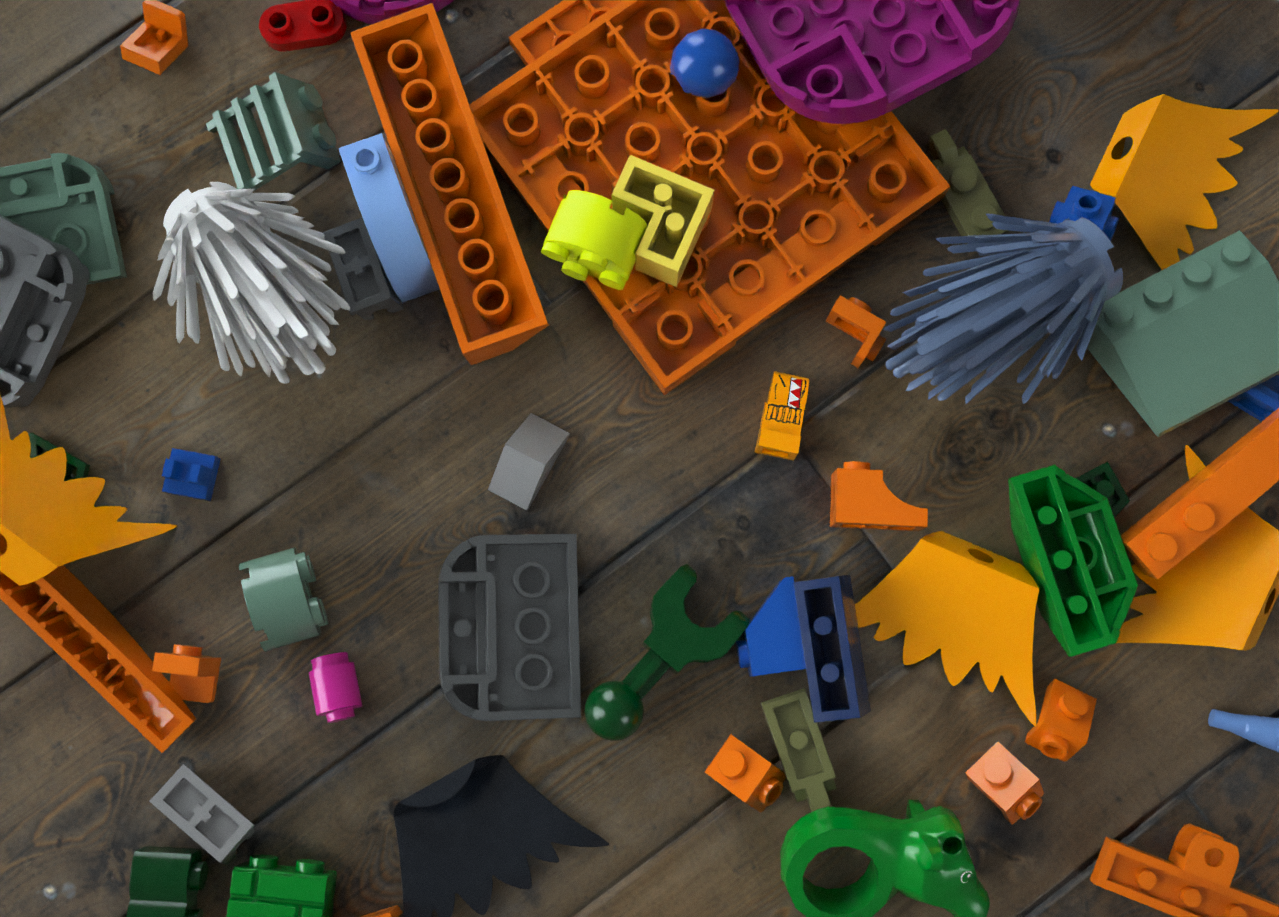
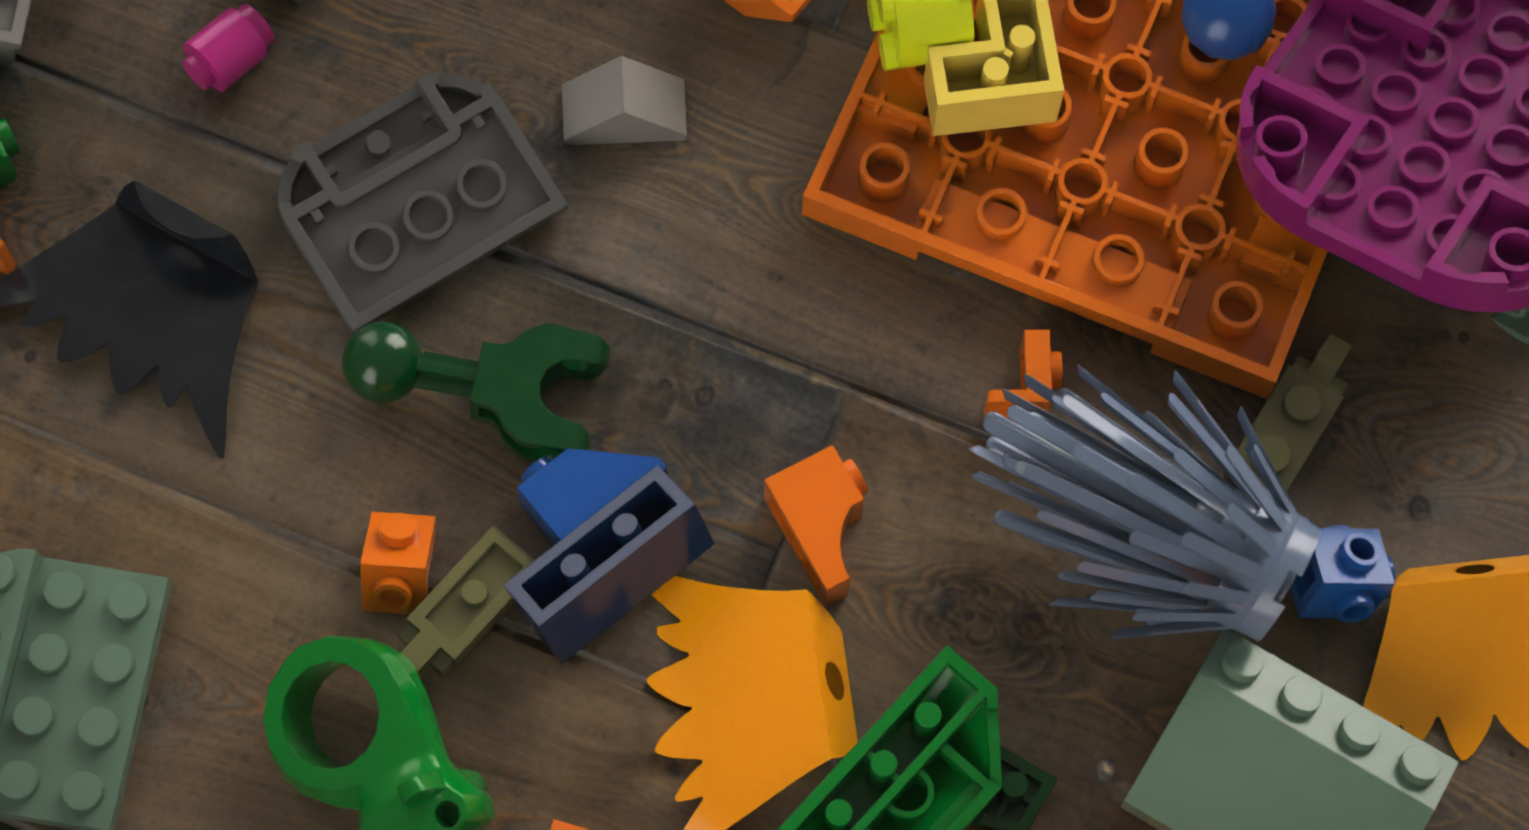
camera: 55 degrees right, 10 degrees down
(783, 416) = (861, 359): light orange leg -> none

